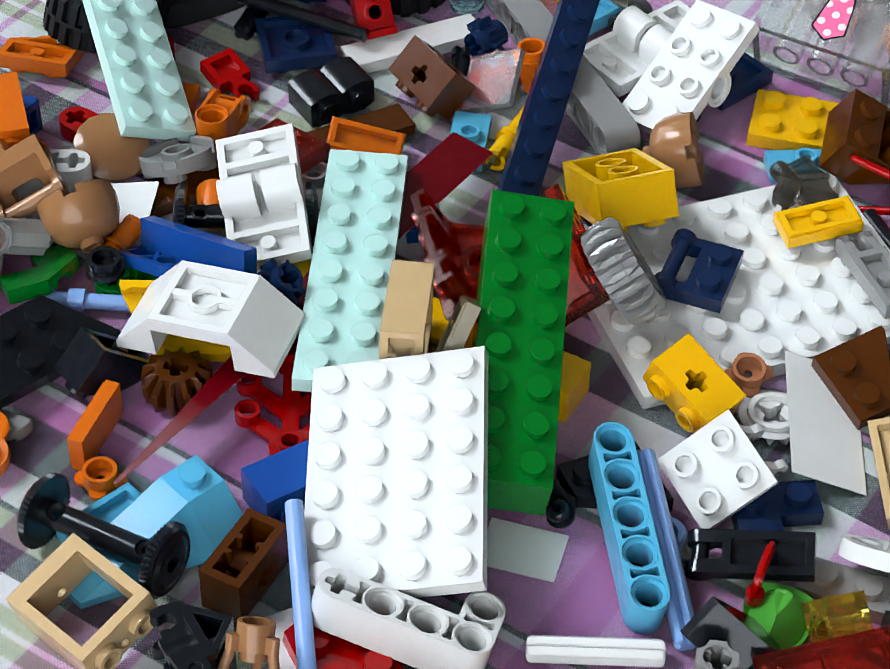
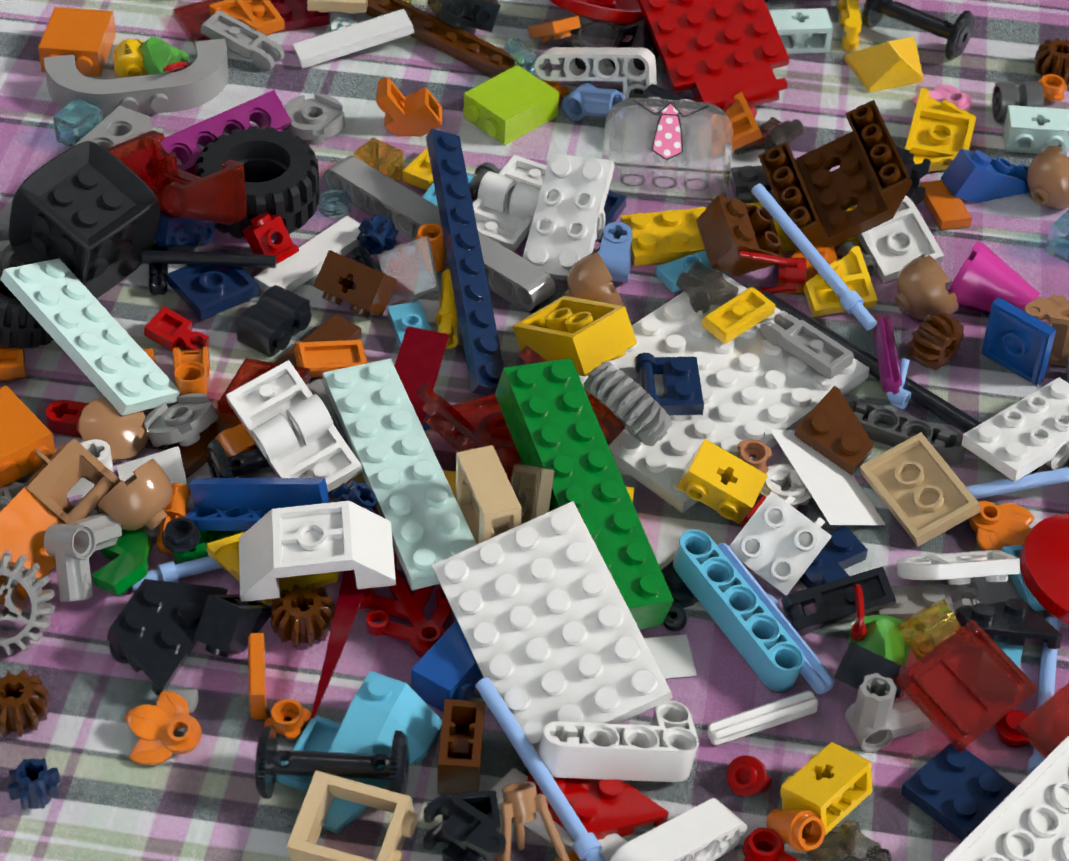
camera: 25 degrees left, 0 degrees up
(725, 124) = (616, 250): none -> medium blue piece

